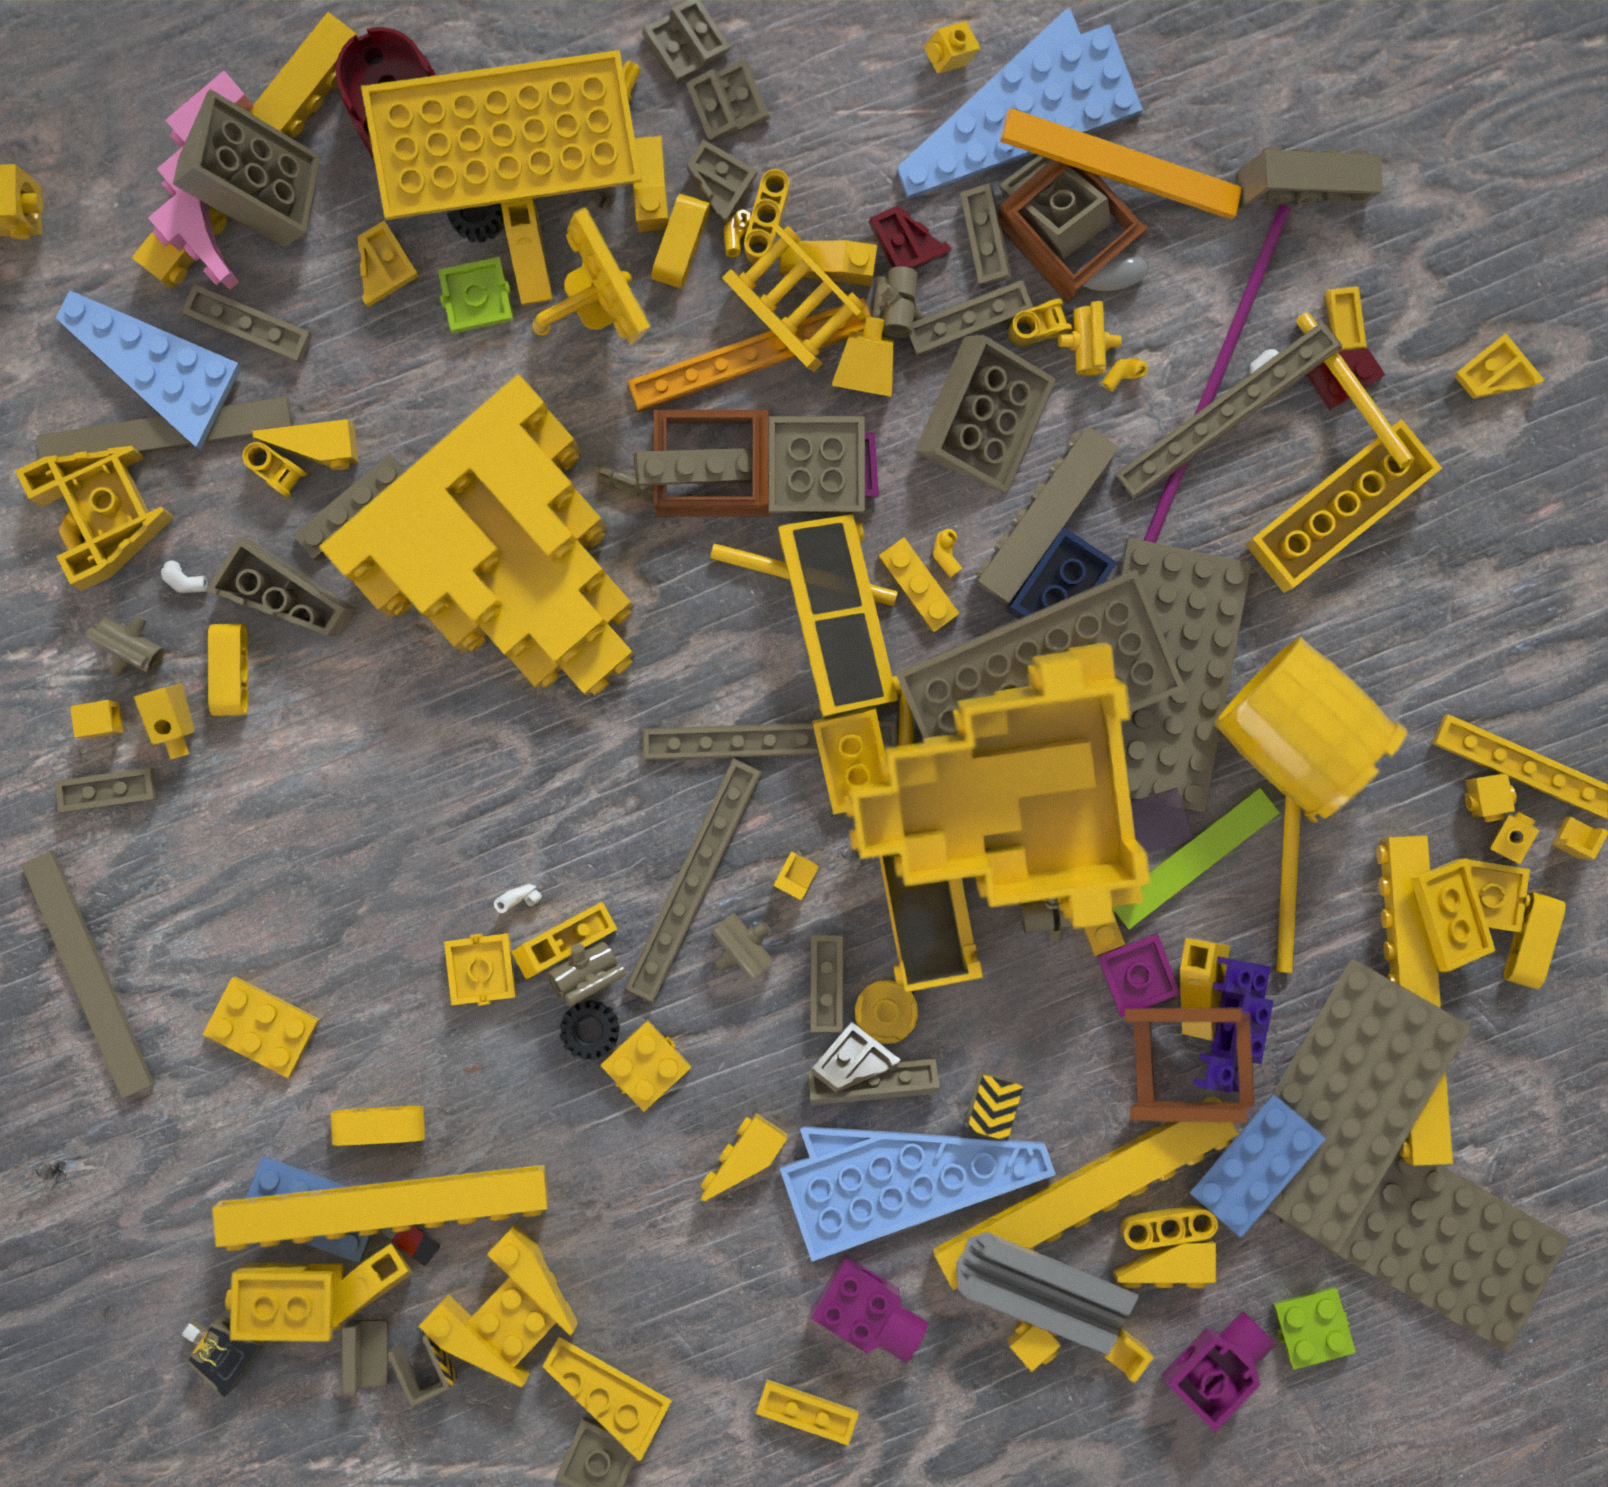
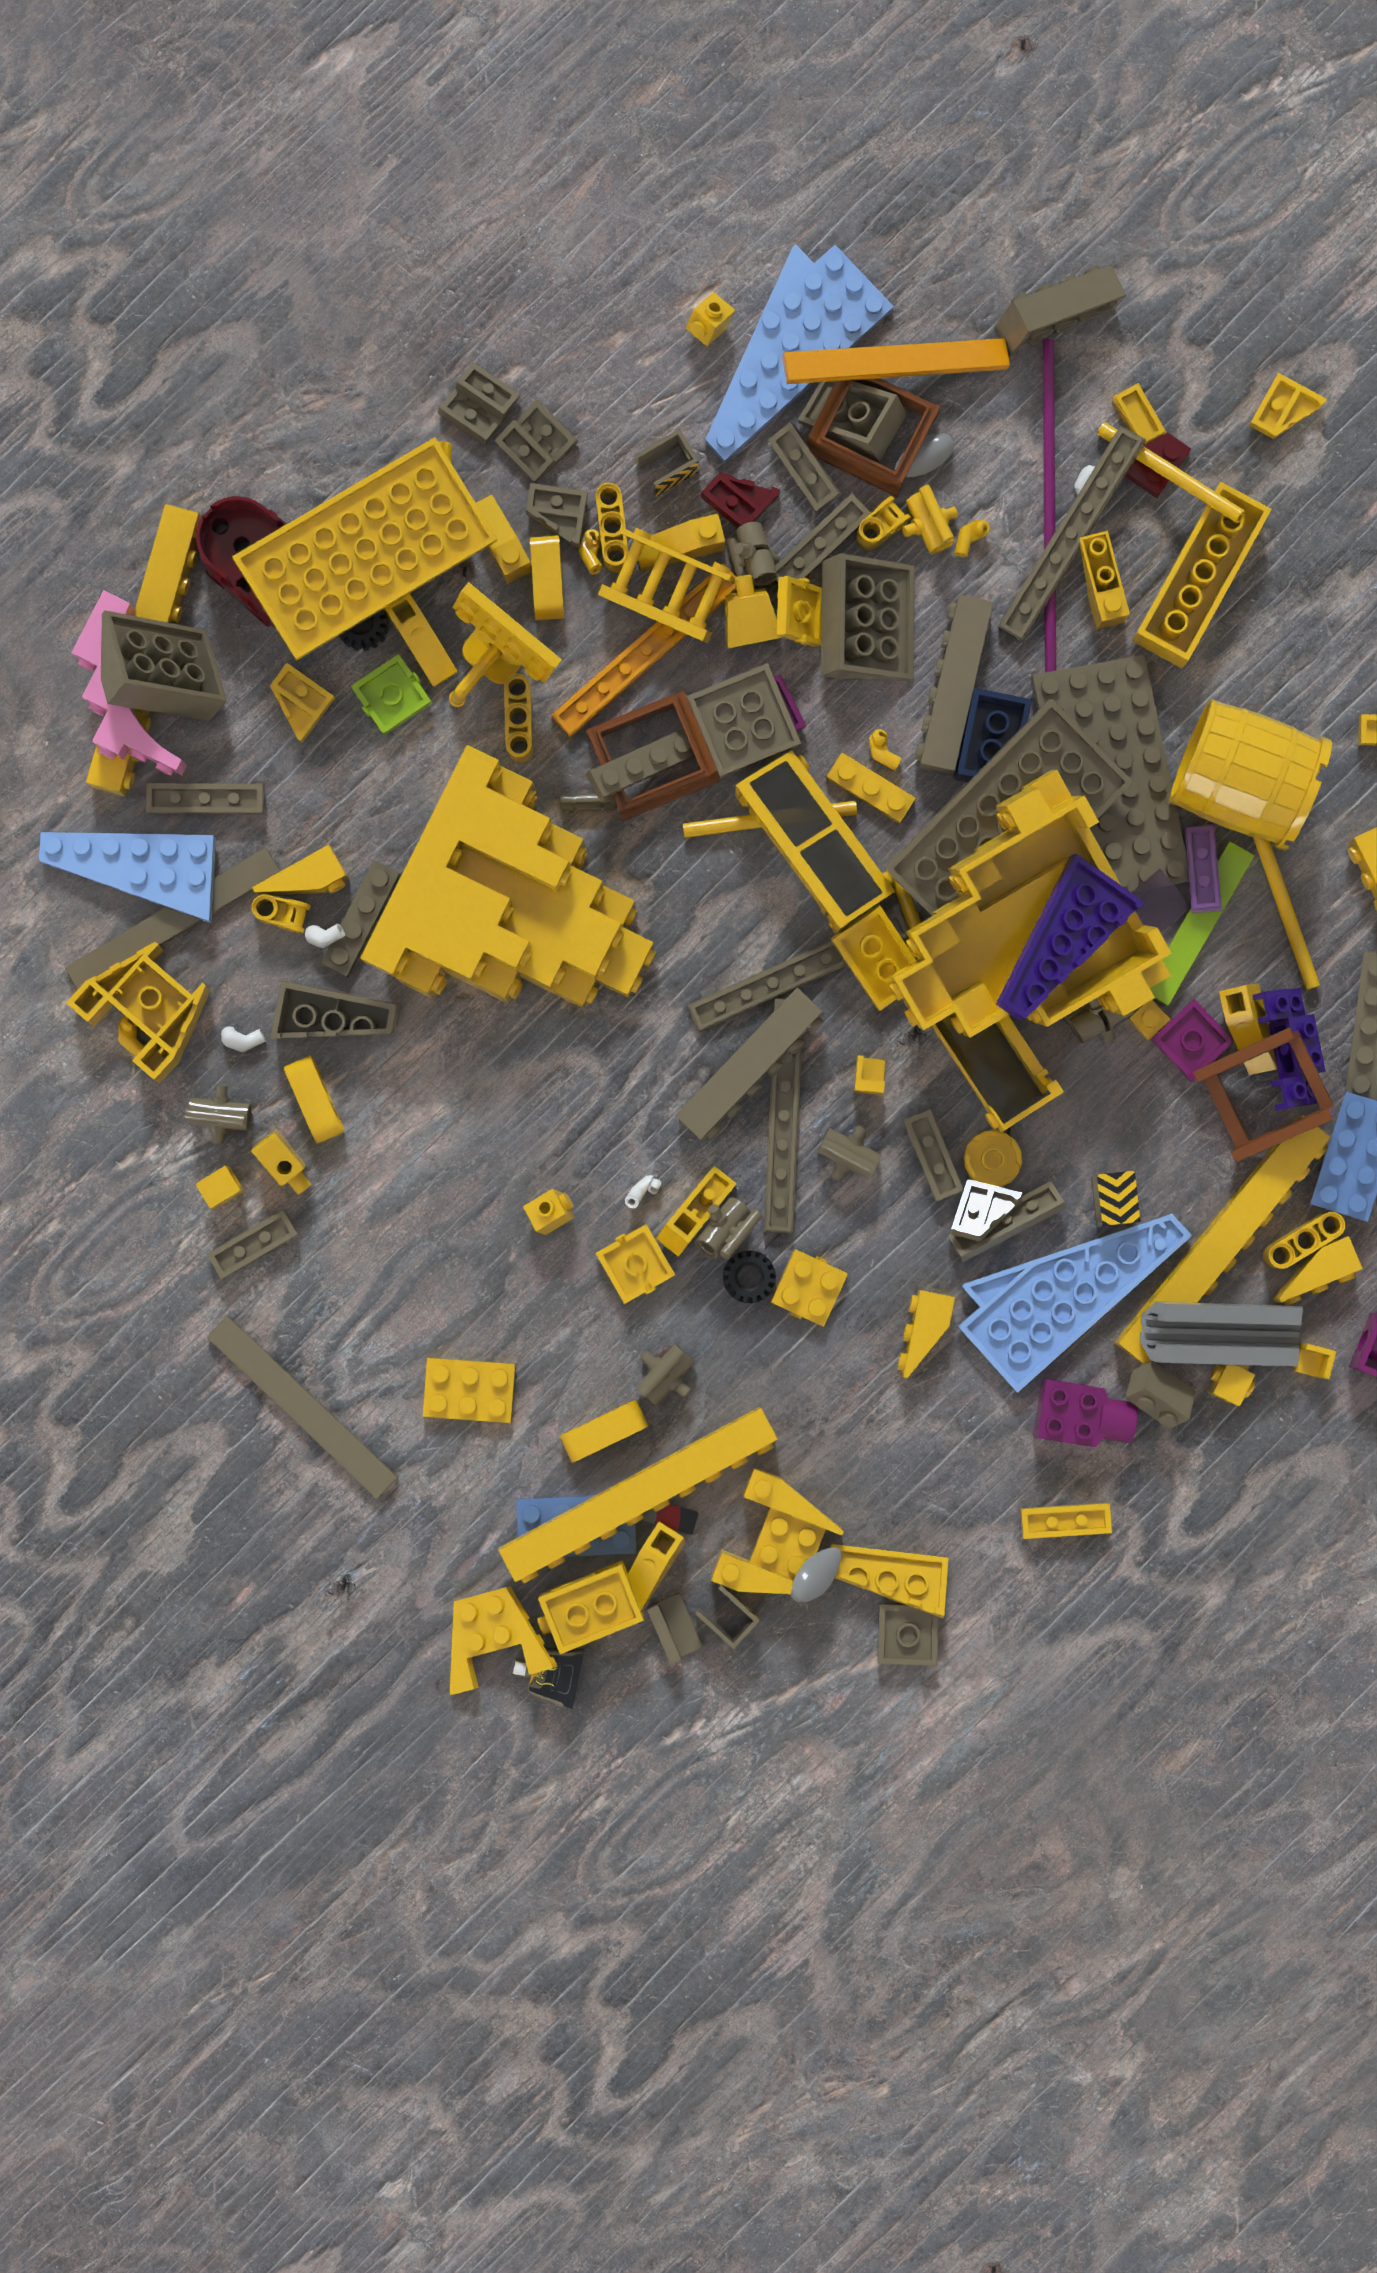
camera: 25 degrees left, 0 degrees up
(179, 1275) = (491, 1624): none -> yellow wing
(304, 511) = (323, 938): none -> white arm
(414, 880) = (549, 1211): none -> yellow brick
(463, 1094) = (665, 1374): none -> dark tan pin
(526, 1366) = (816, 1575): none -> light grey arm
(593, 355) = (515, 704): none -> yellow beam
(679, 816) = (750, 1065): none -> dark tan brick
(849, 157) = (660, 448): none -> dark tan piece
(919, 377) = (799, 611): none -> yellow plate
(955, 1326) = (1160, 1394): none -> dark tan brick
(1057, 814) = (1072, 926): none -> dark purple wing
(1221, 805) = (1203, 868): none -> medium lavender tile
(1240, 471) = (1103, 581): none -> yellow slope

